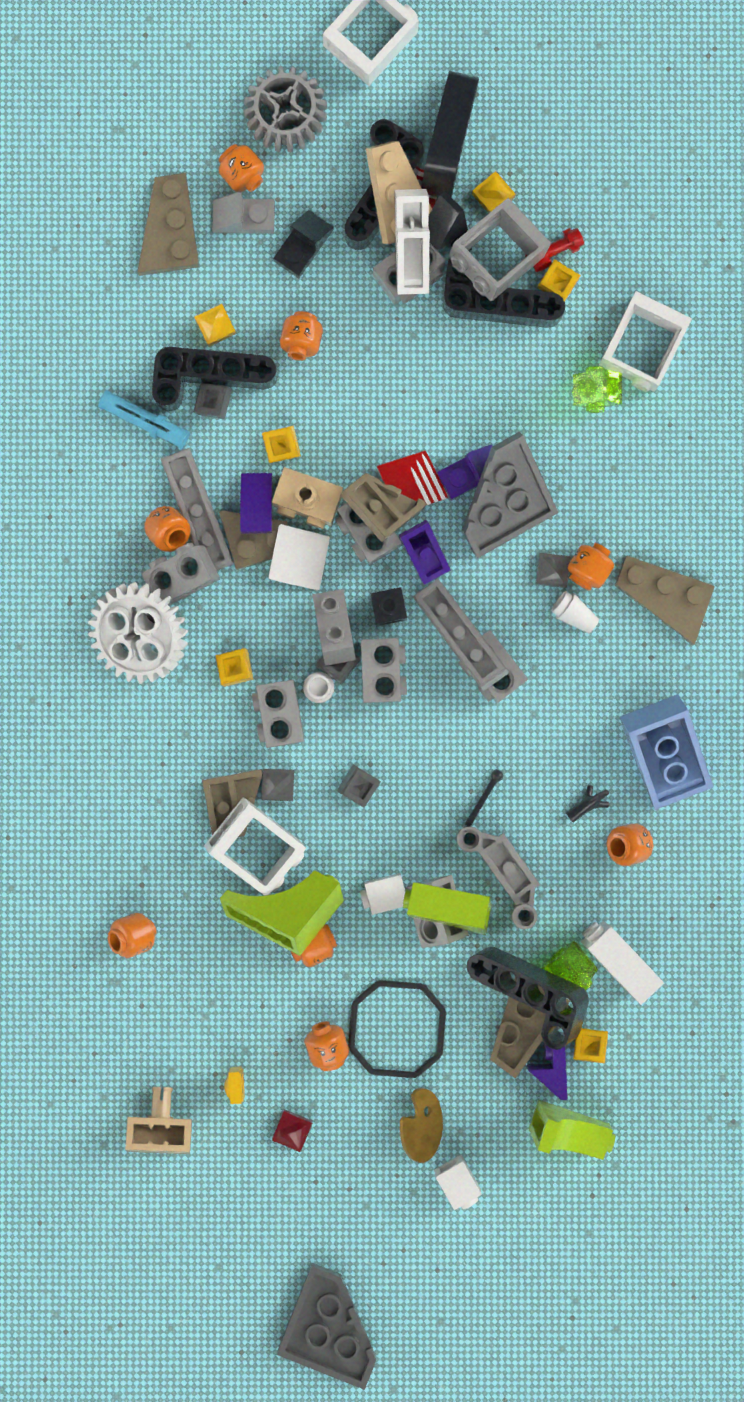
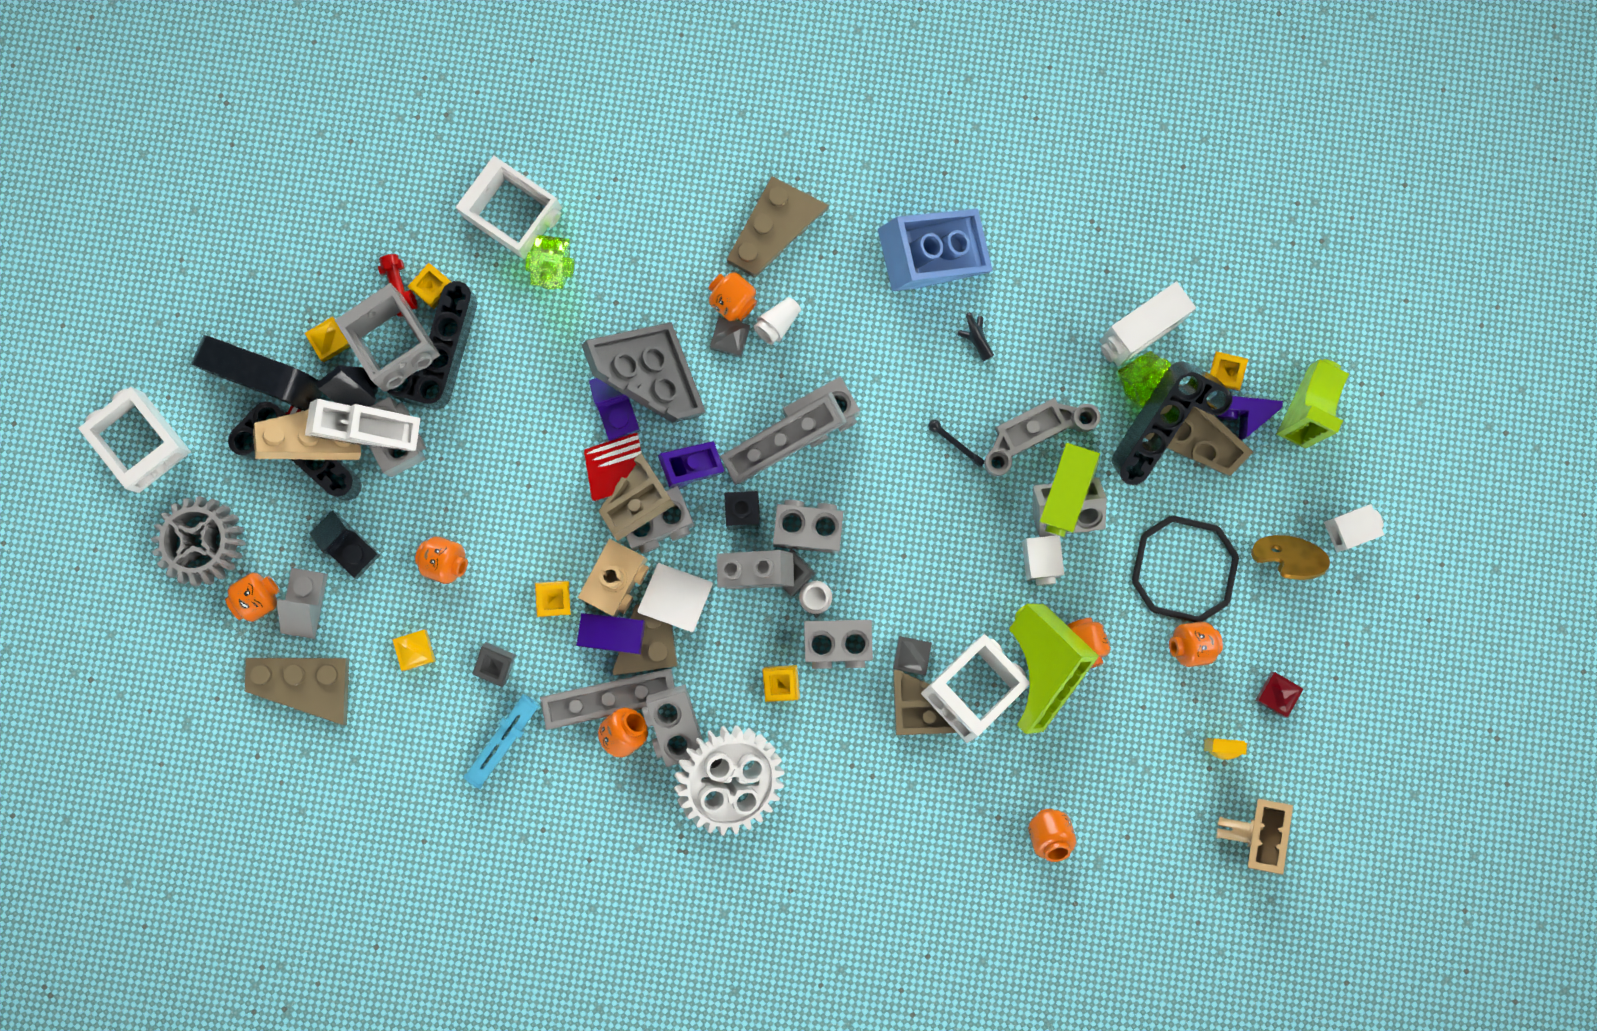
camera: 75 degrees left, 5 degrees down
(214, 375) = (467, 657): black beam -> none
(328, 1331) = (1494, 687): dark grey plate -> none
(358, 786) = (925, 570): dark grey tile -> none
(629, 844) = (1026, 299): orange head -> none

